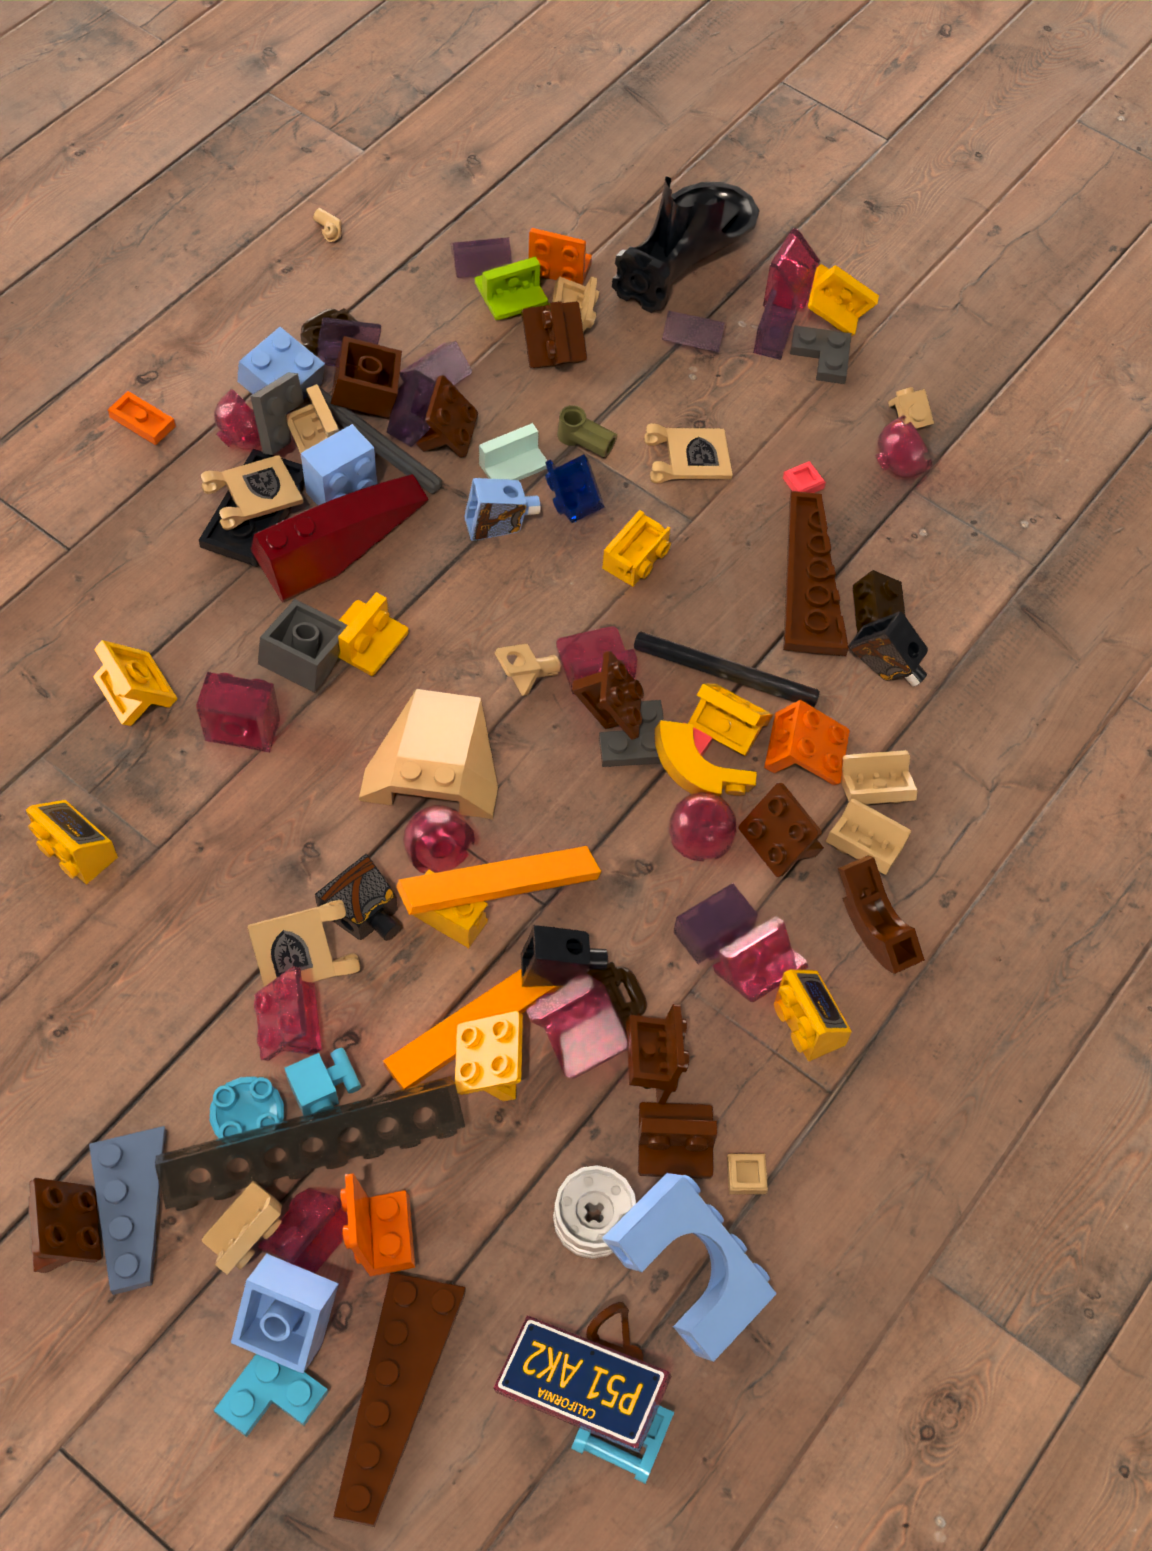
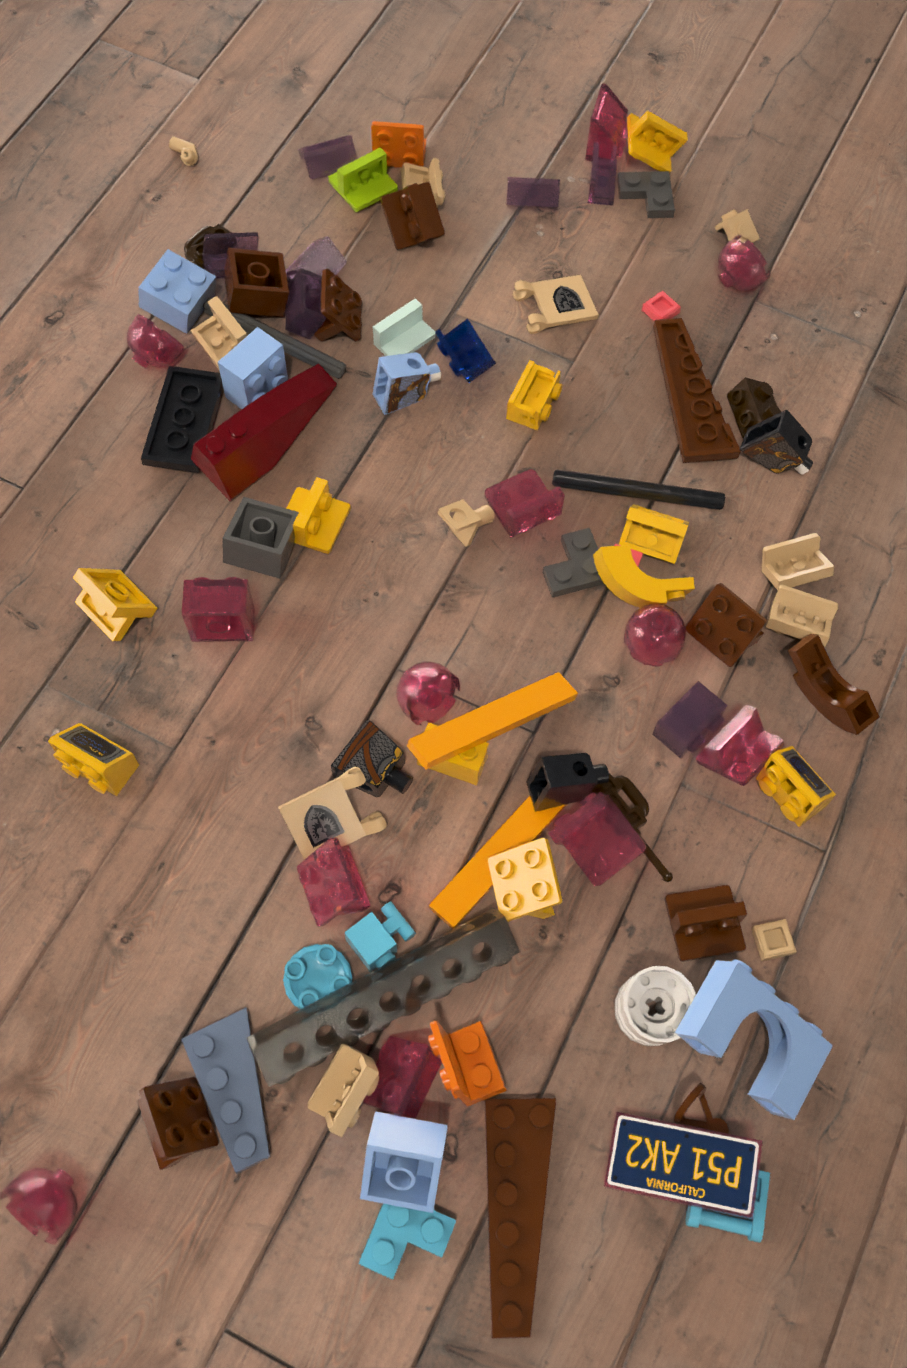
camera: 10 degrees left, 5 degrees up
(141, 418) = (59, 355): orange plate -> none
(255, 488) = (181, 401): tan flag -> none
(270, 407) = (179, 324): dark grey plate -> none
(436, 752) = (403, 614): tan wedge -> none
(577, 429) = (454, 297): olive piece -> none
(612, 696) = (550, 533): reddish brown bracket -> none
(657, 1052) = (675, 848): reddish brown bracket -> none
(686, 230) = (508, 100): black animal -> none
(808, 739) = (725, 538): orange bracket -> none

